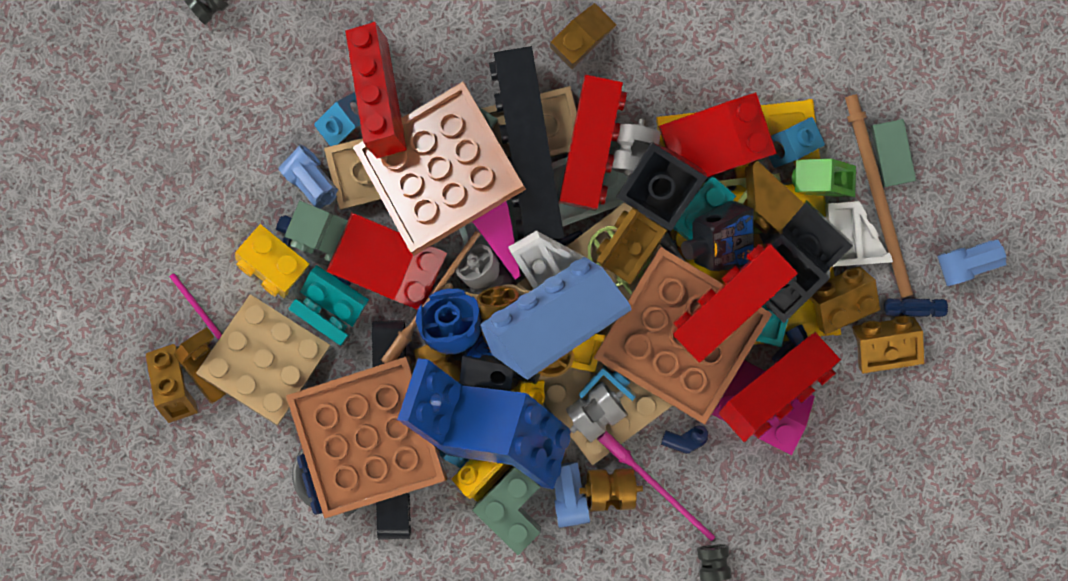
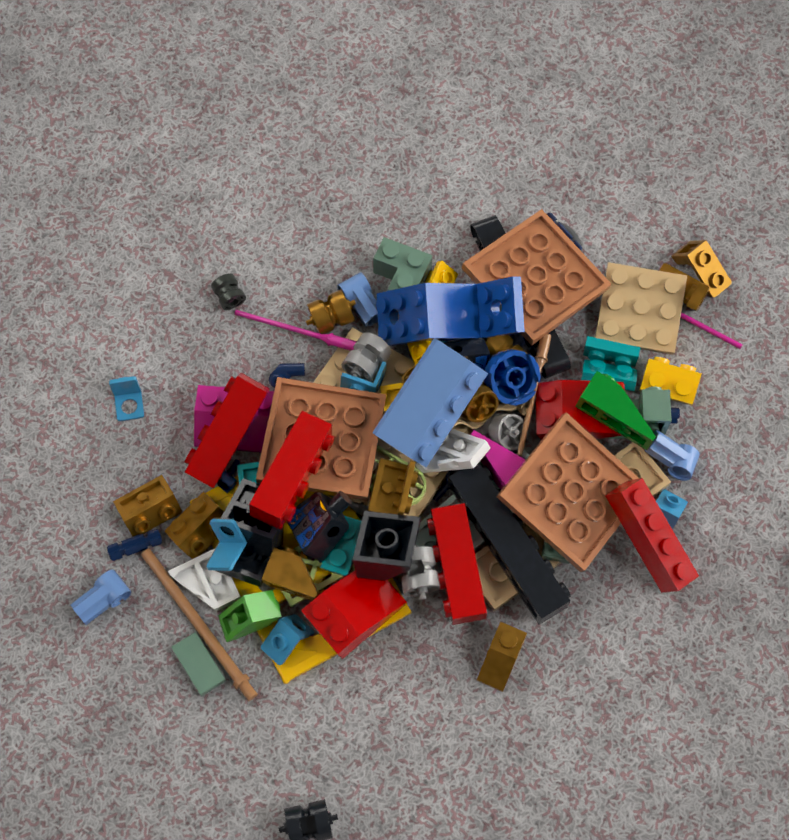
camera: 155 degrees right, 20 degrees down
(355, 243) = (612, 406): none -> green slope
(831, 246) = (229, 547): none -> dark azure bracket
(868, 488) = (127, 389): none -> dark azure bracket

